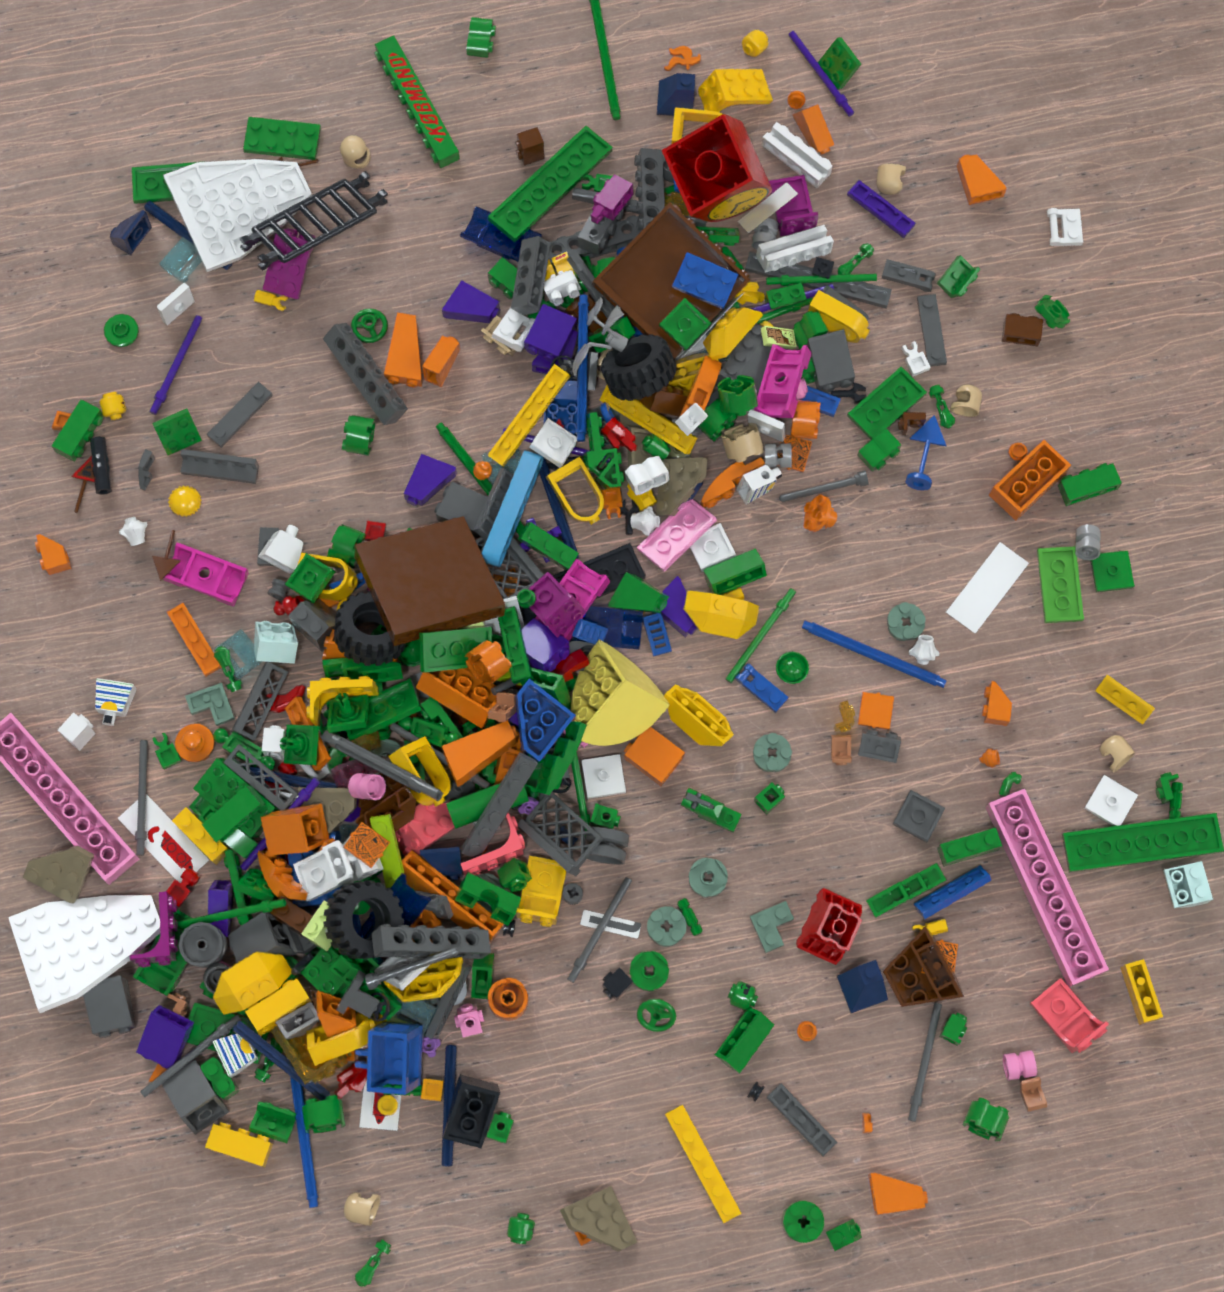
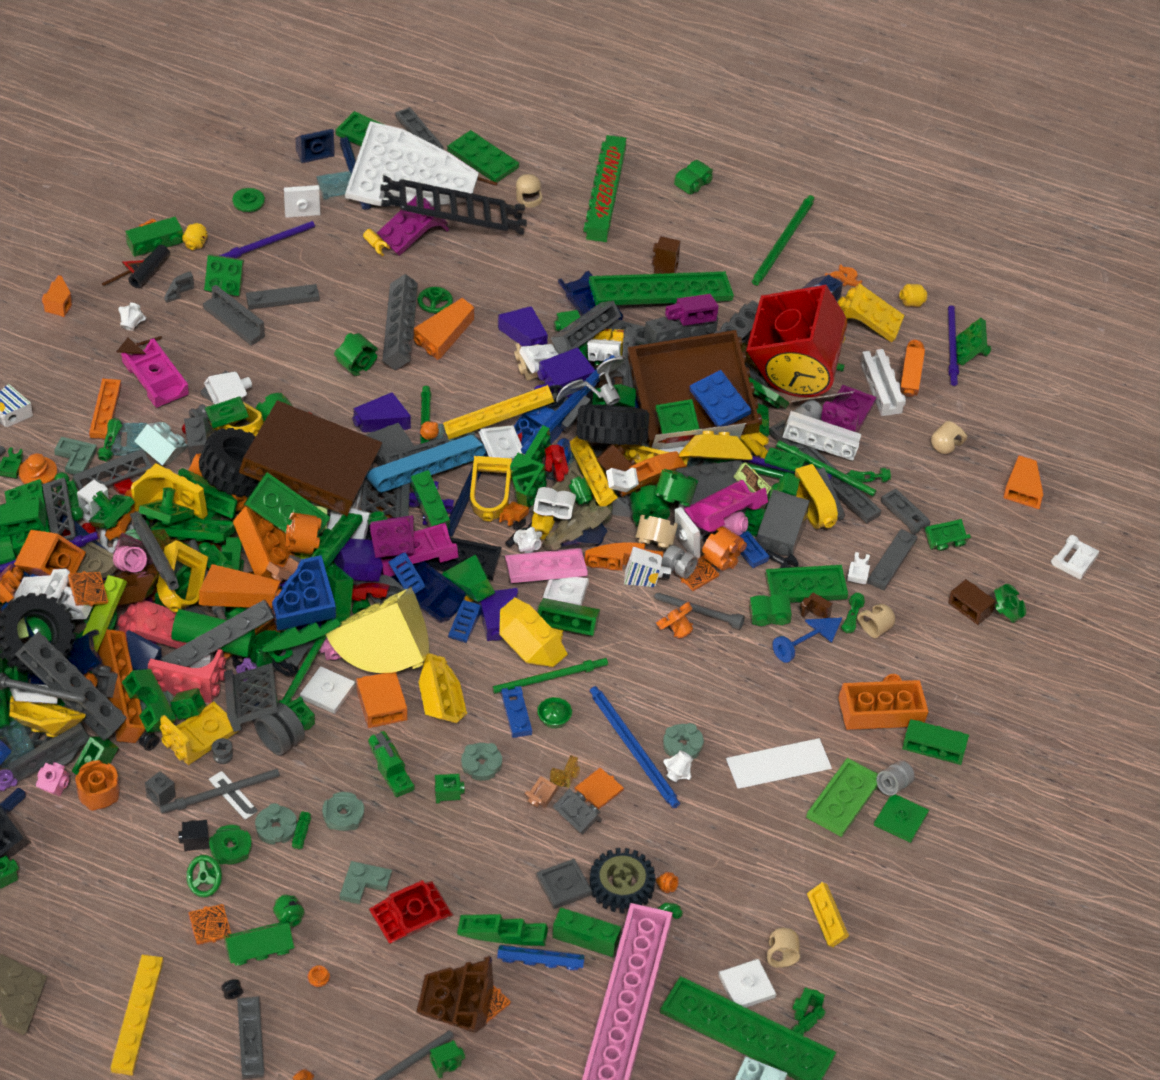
camera: 35 degrees right, 25 degrees down
(184, 501) = (188, 324): yellow hat -> none
(202, 147) = (415, 126): none -> dark grey plate
(441, 360) = (465, 347): orange slope -> none
(557, 965) = (160, 789): none -> dark grey brick
(689, 1048) = (209, 924): none -> orange piece
(823, 268) = (834, 460): black bracket -> none
(863, 986) = (399, 975): dark blue slope -> none
(881, 209) = (922, 456): dark purple plate -> none
(934, 927) = (503, 974): yellow bar -> none
(944, 769) = (622, 868): none -> wheel
(997, 707) = (705, 849): orange slope -> none

